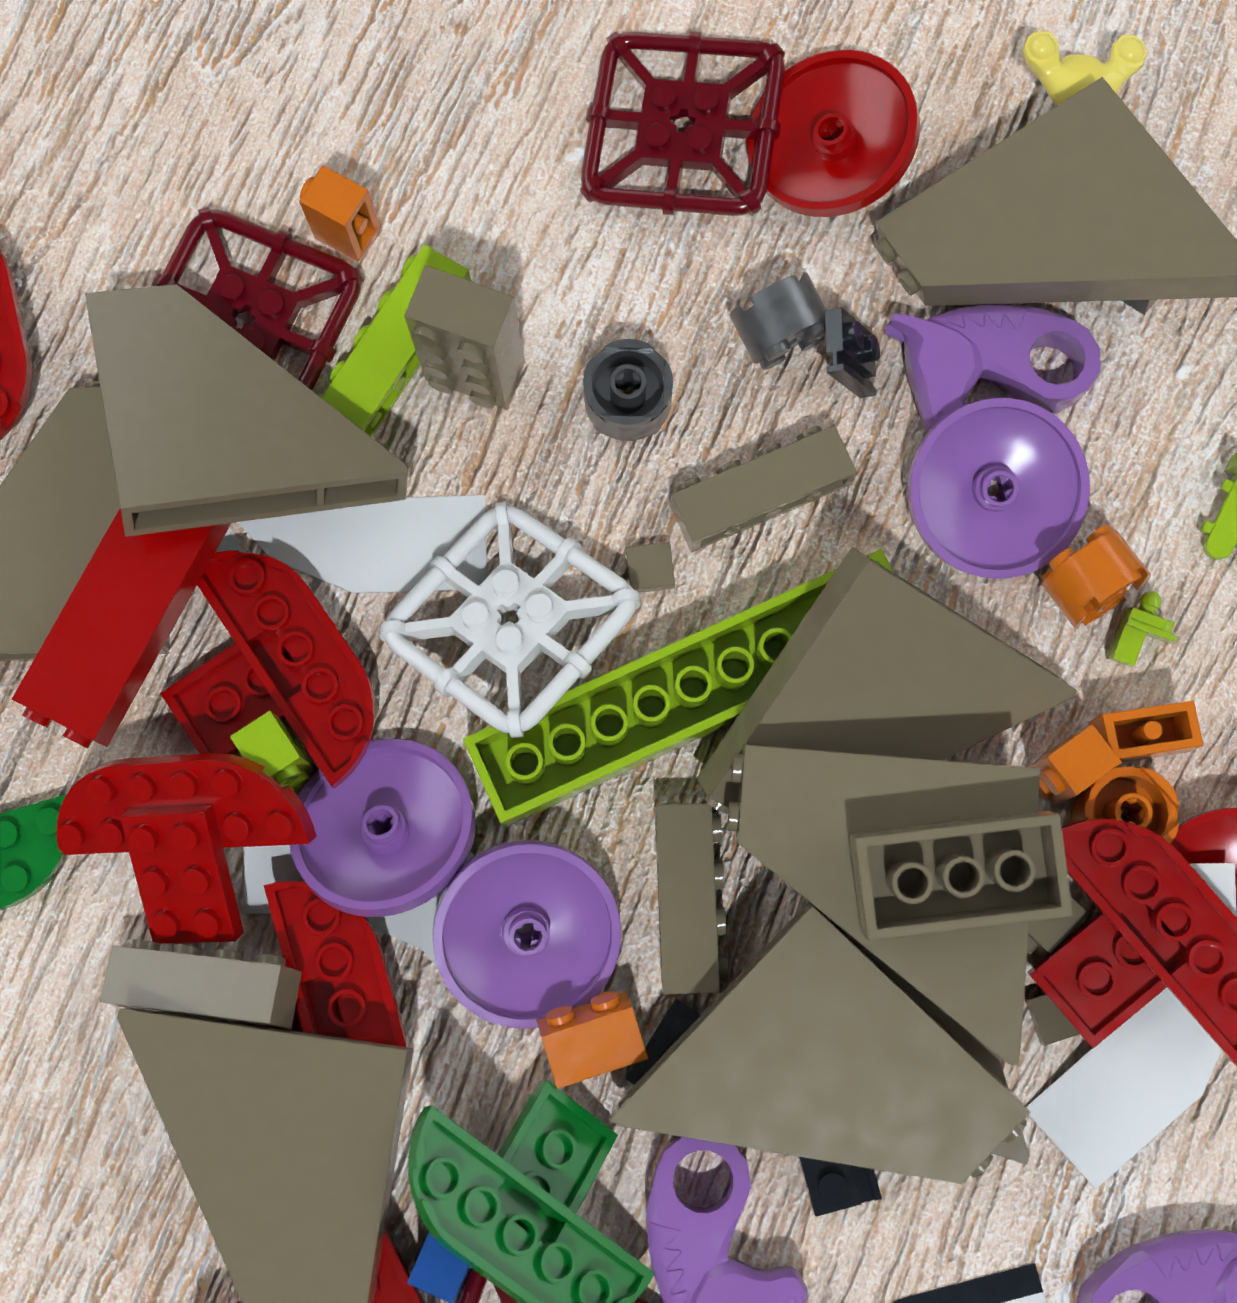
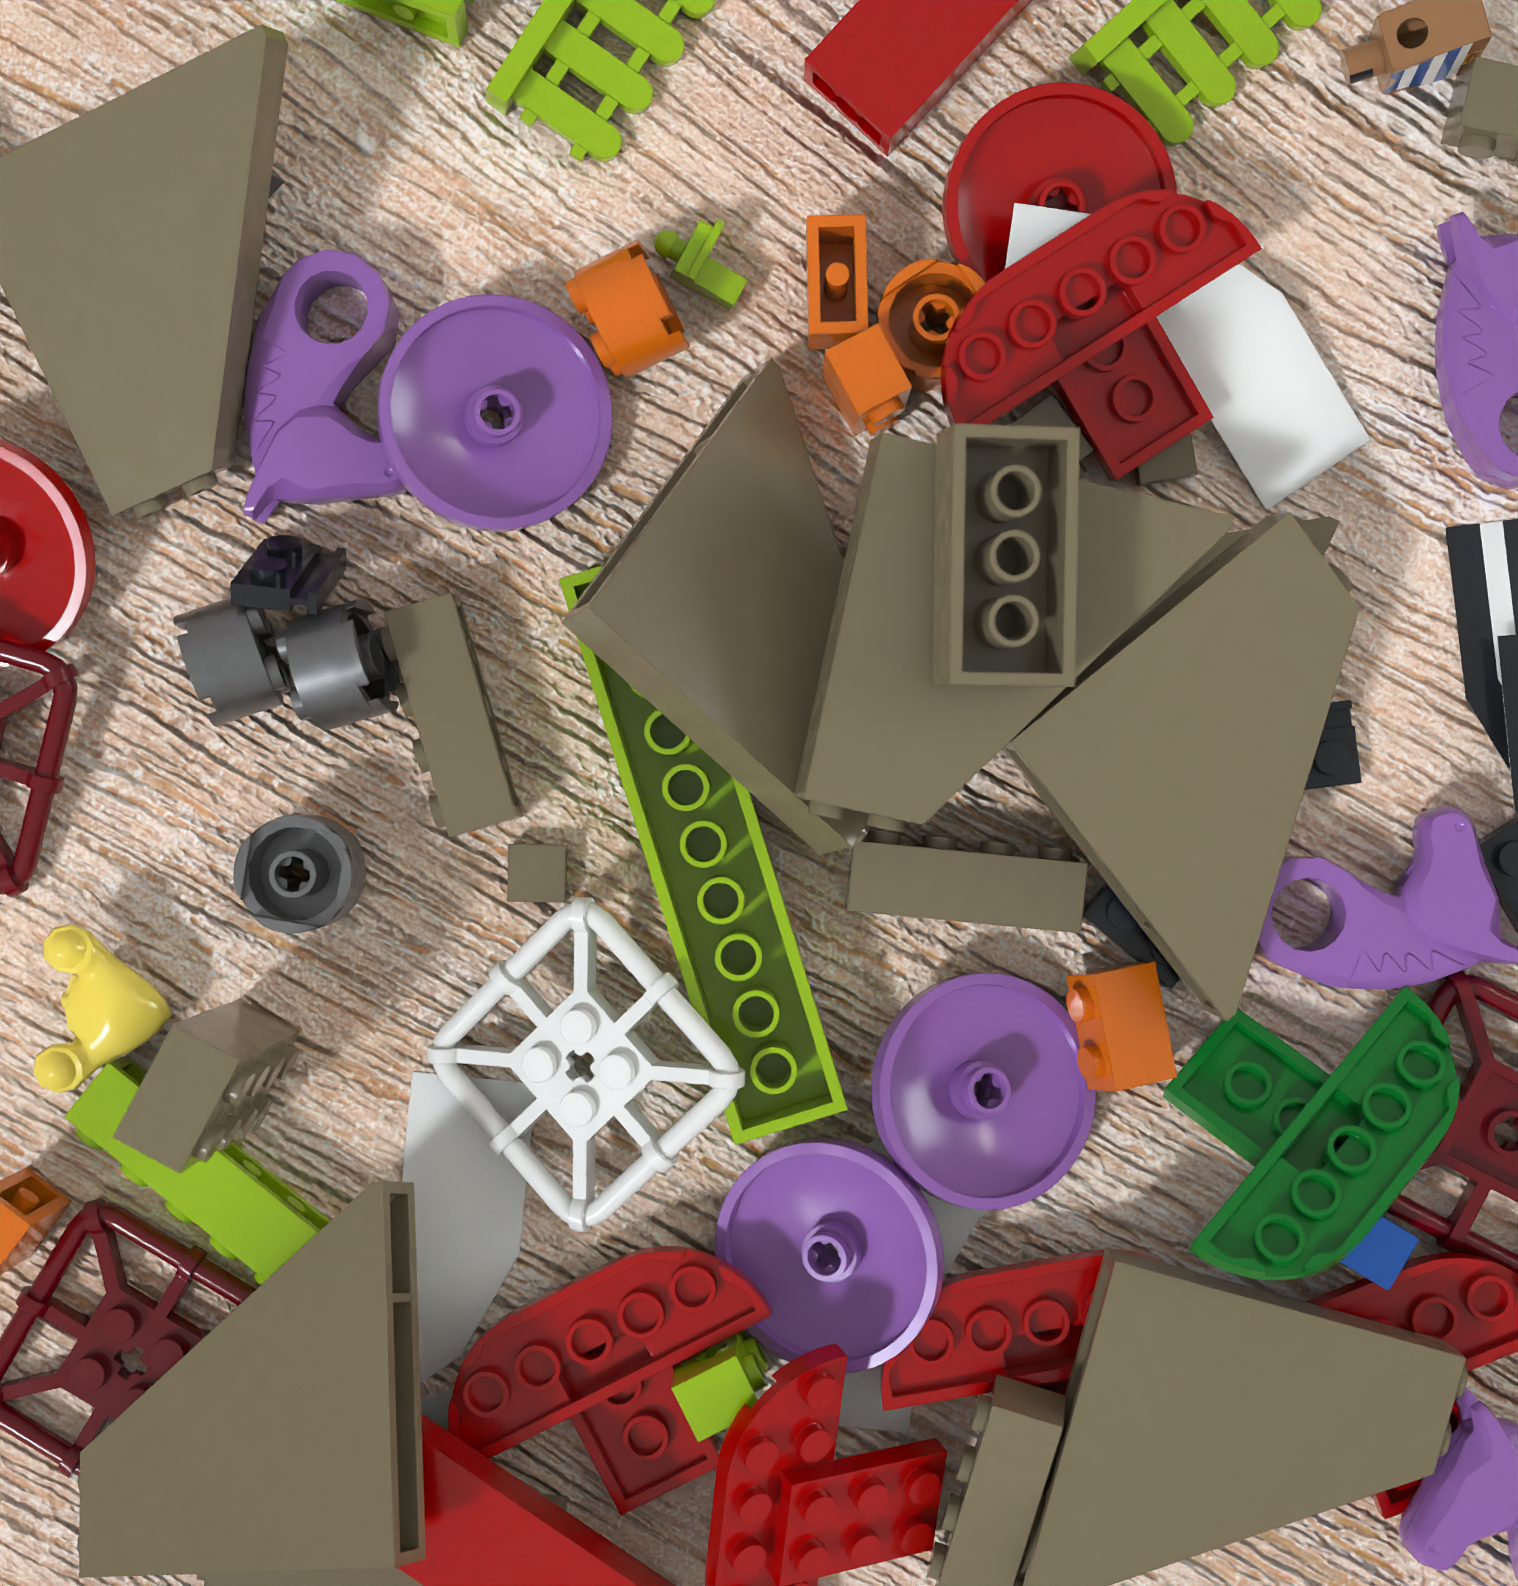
camera: 90 degrees left, 10 degrees up
(507, 262) = (104, 1005): none -> light yellow head
(788, 397) = (338, 666): none -> flat silver brick

